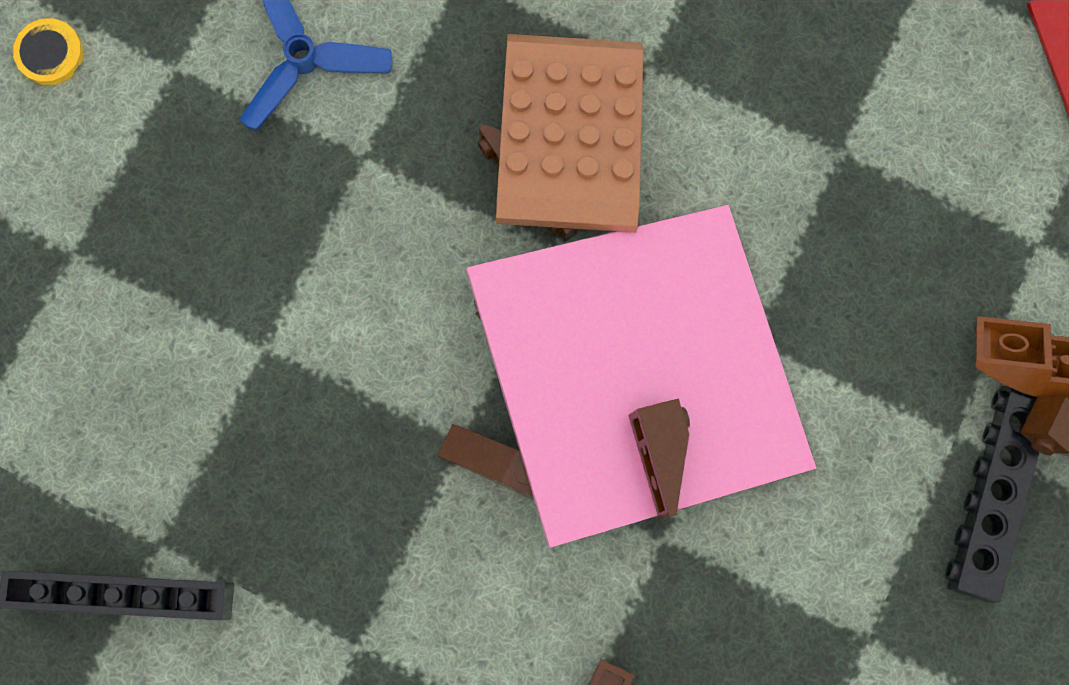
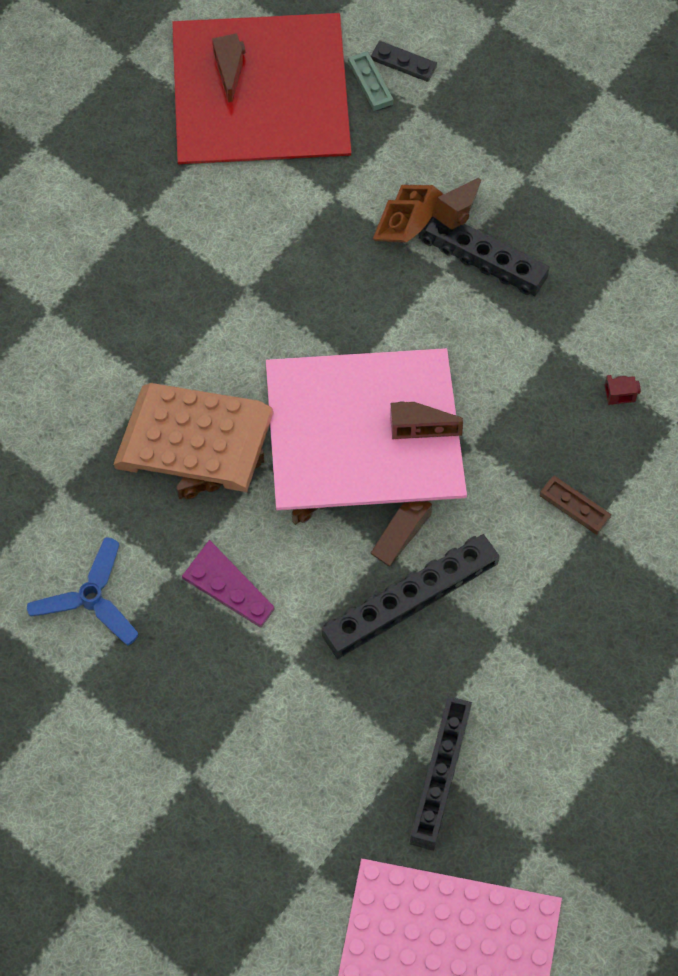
camera: 75 degrees left, 15 degrees down
(48, 51) = (38, 767): tile -> none
(297, 410) = (343, 643): none -> black brick
(361, 229) = (225, 583): none -> magenta wing

